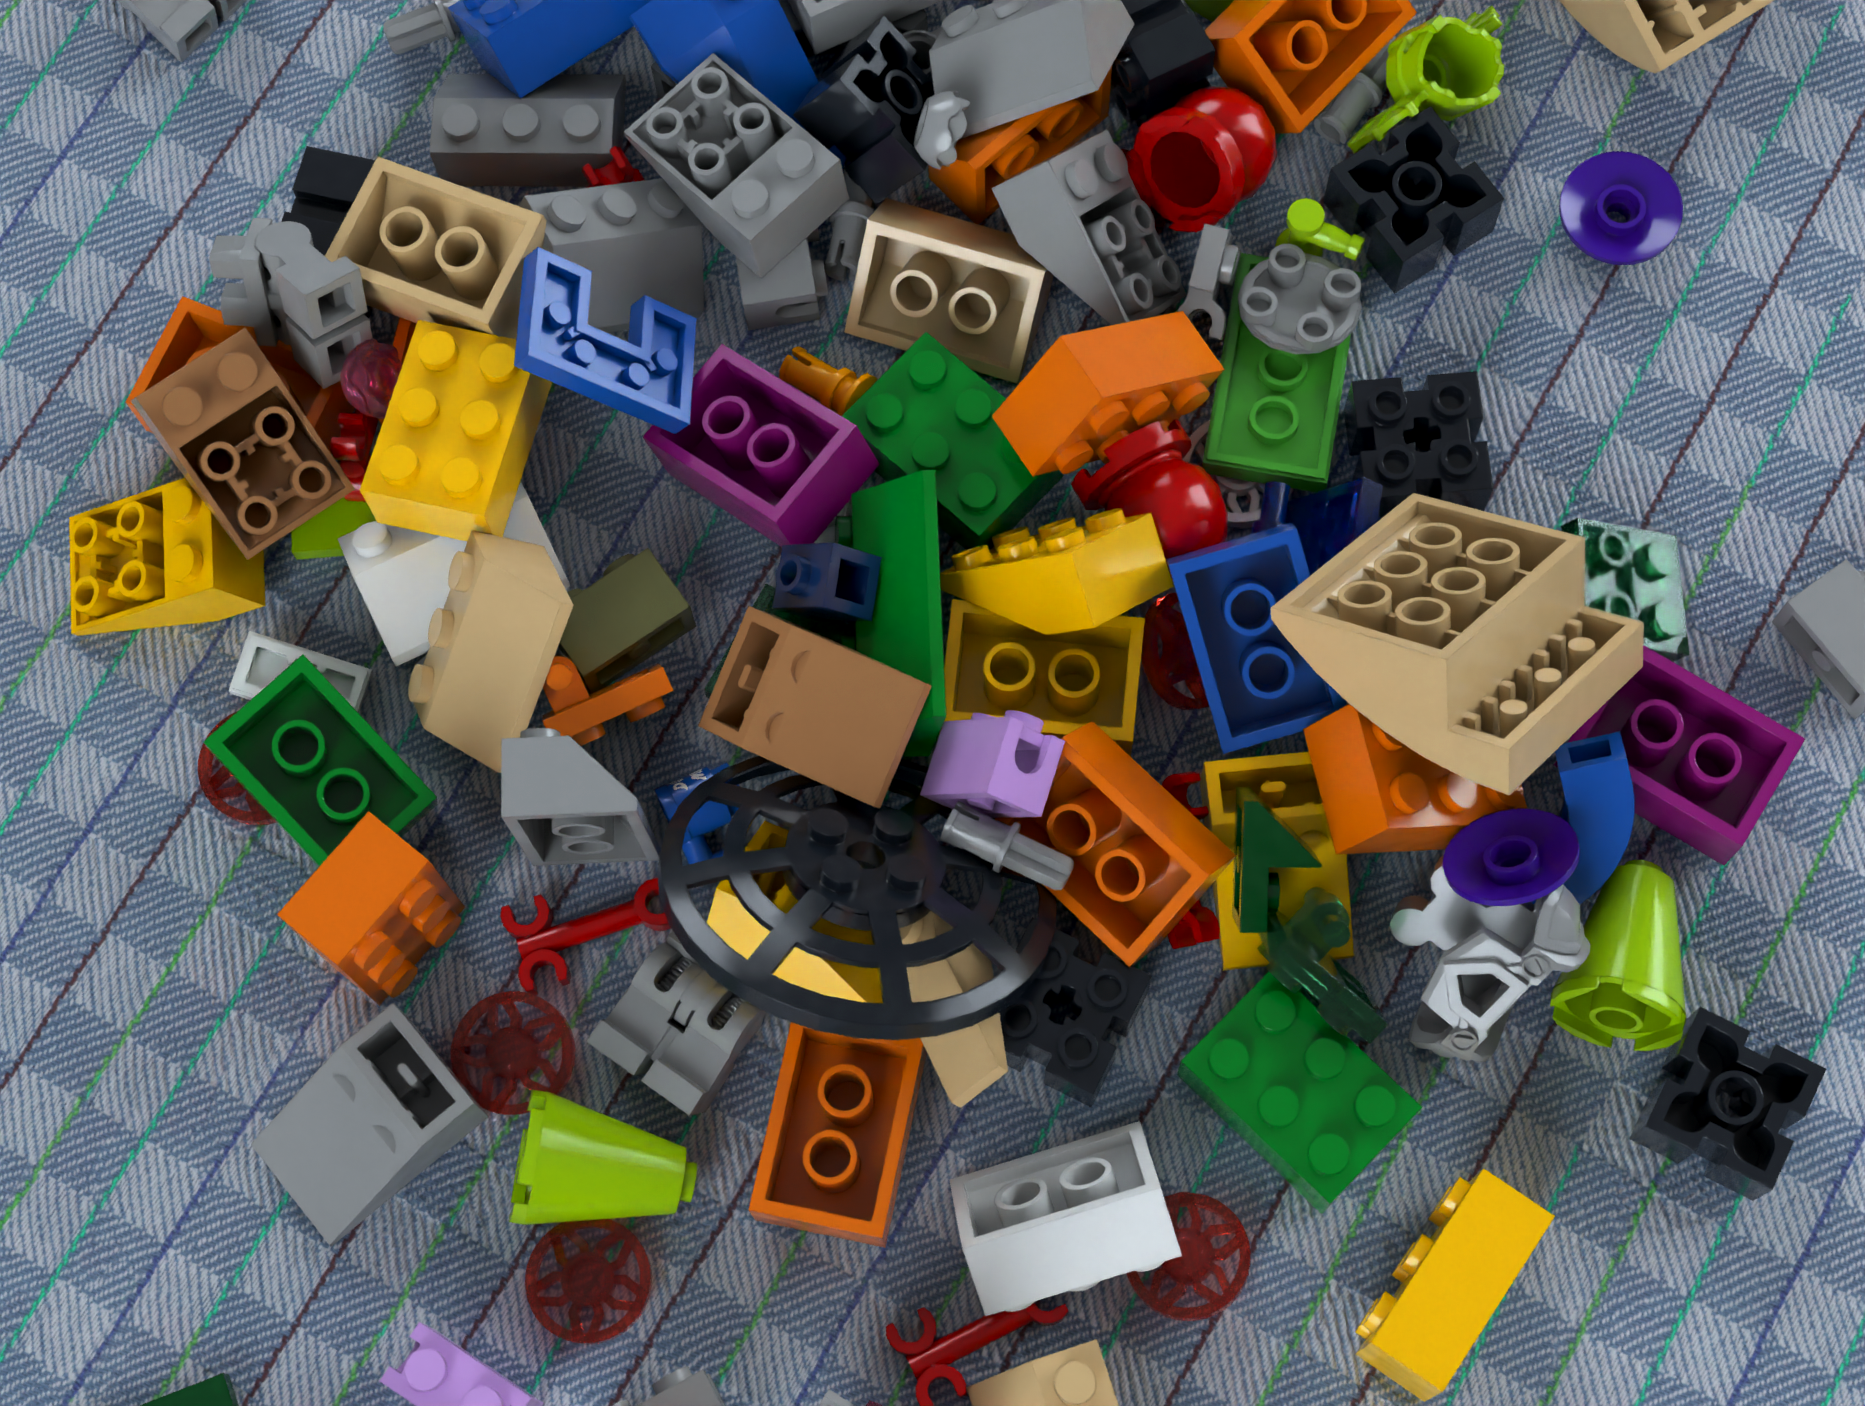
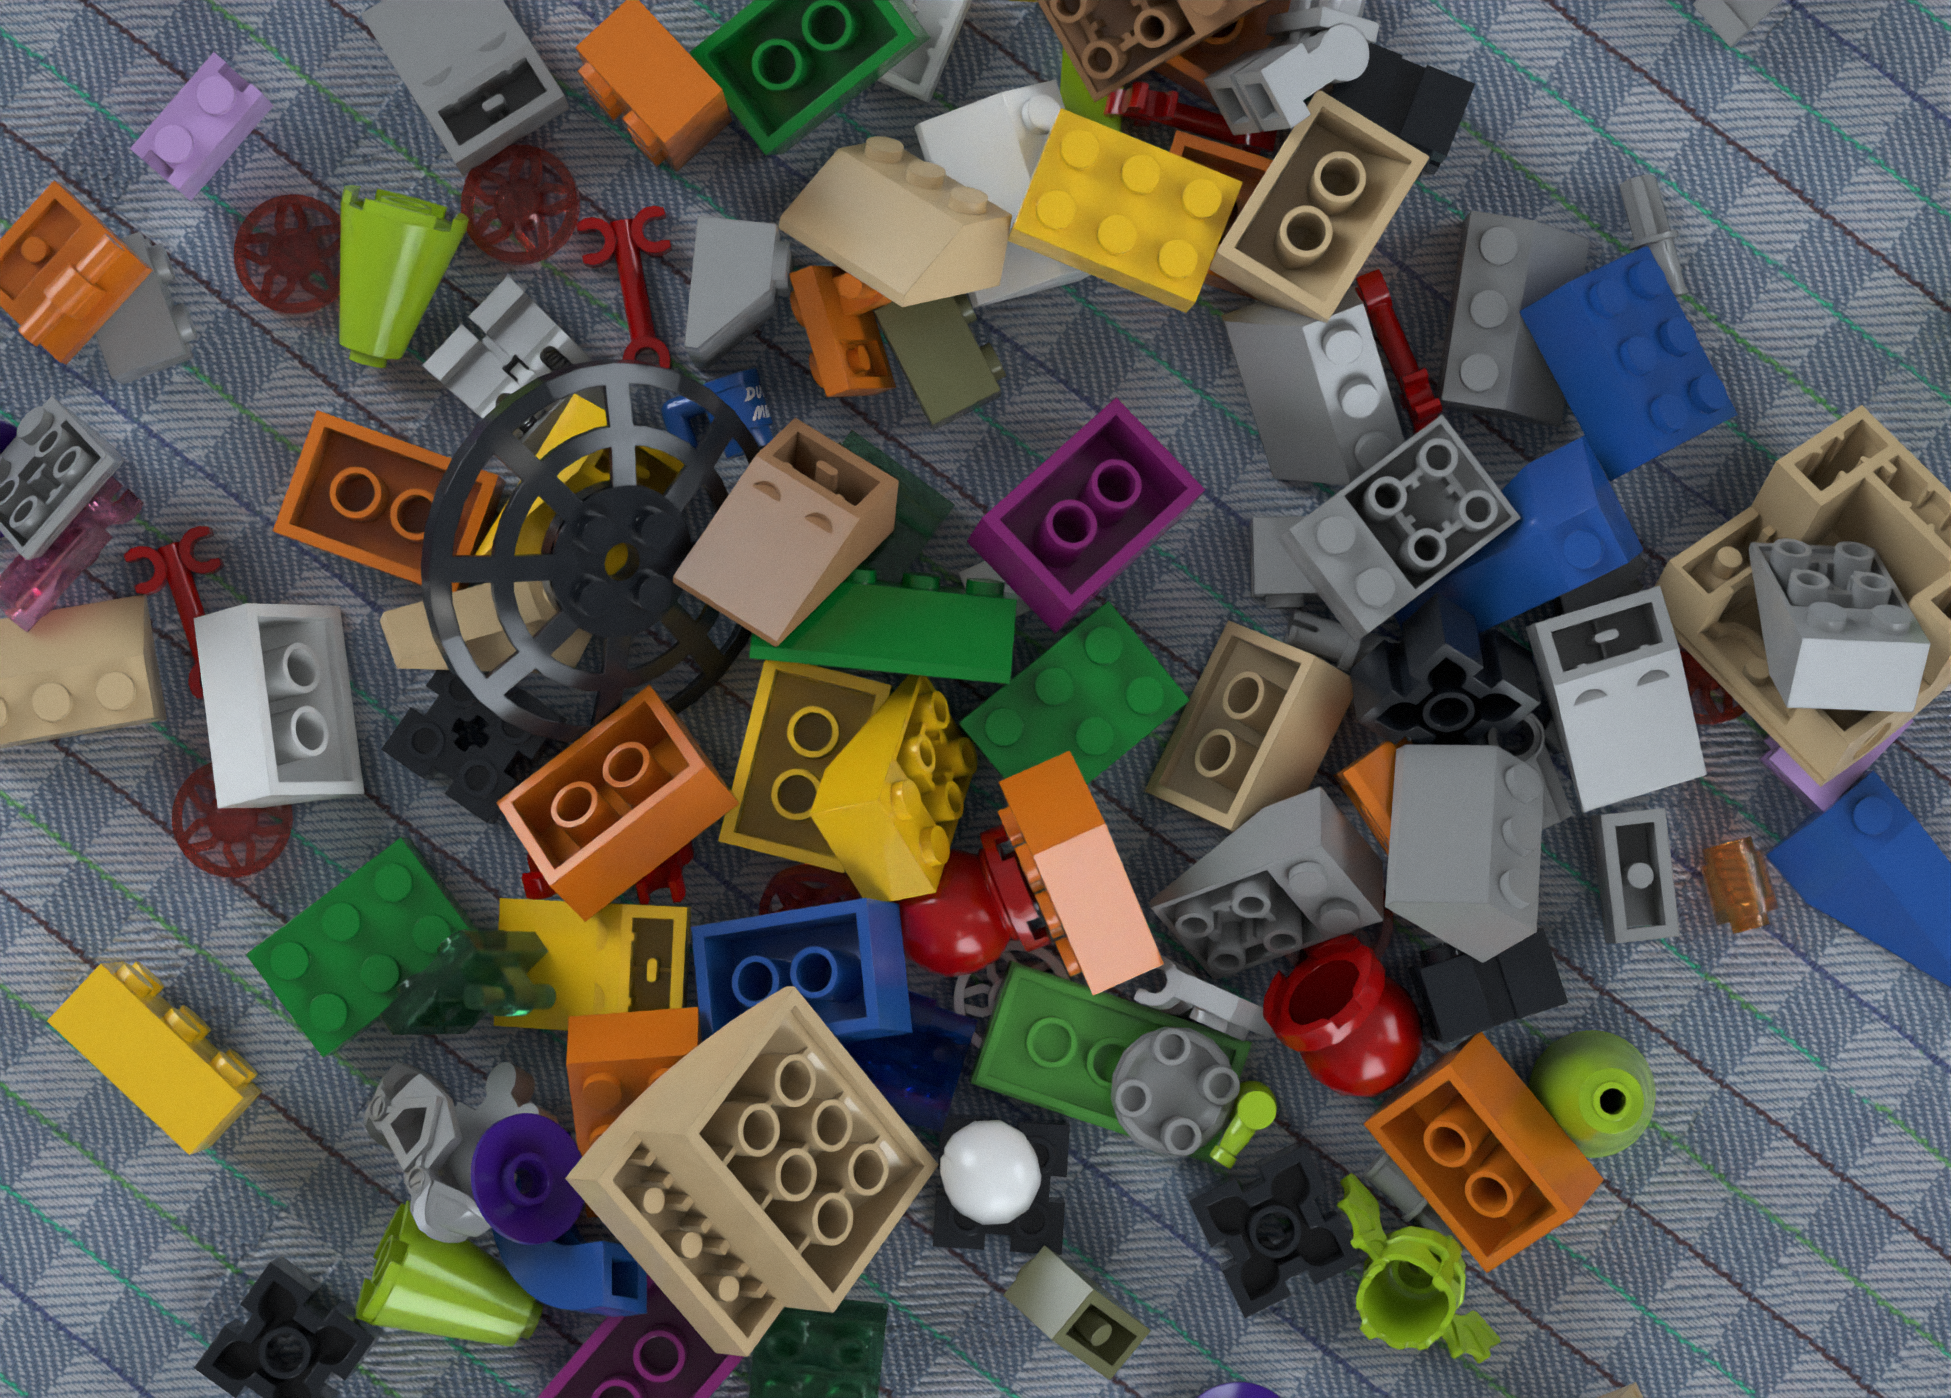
camera: 90 degrees right, 15 degrees up
(370, 377) = (1201, 131): clear pink plate -> none
(639, 377) = (1181, 325): blue plate -> none
(823, 382) = (1164, 596): light orange pin -> none
(826, 582) = (916, 561): dark blue brick -> none
(940, 128) = (1391, 743): light grey plate -> none
(994, 765) = (696, 697): lavender brick -> none
(1006, 847) = (617, 700): light grey axle -> none
(1262, 843) = (585, 951): dark green slope -> none
(1412, 435) = (990, 1172): none -> white hair
(1527, 353) = (1076, 1312): none -> olive brick

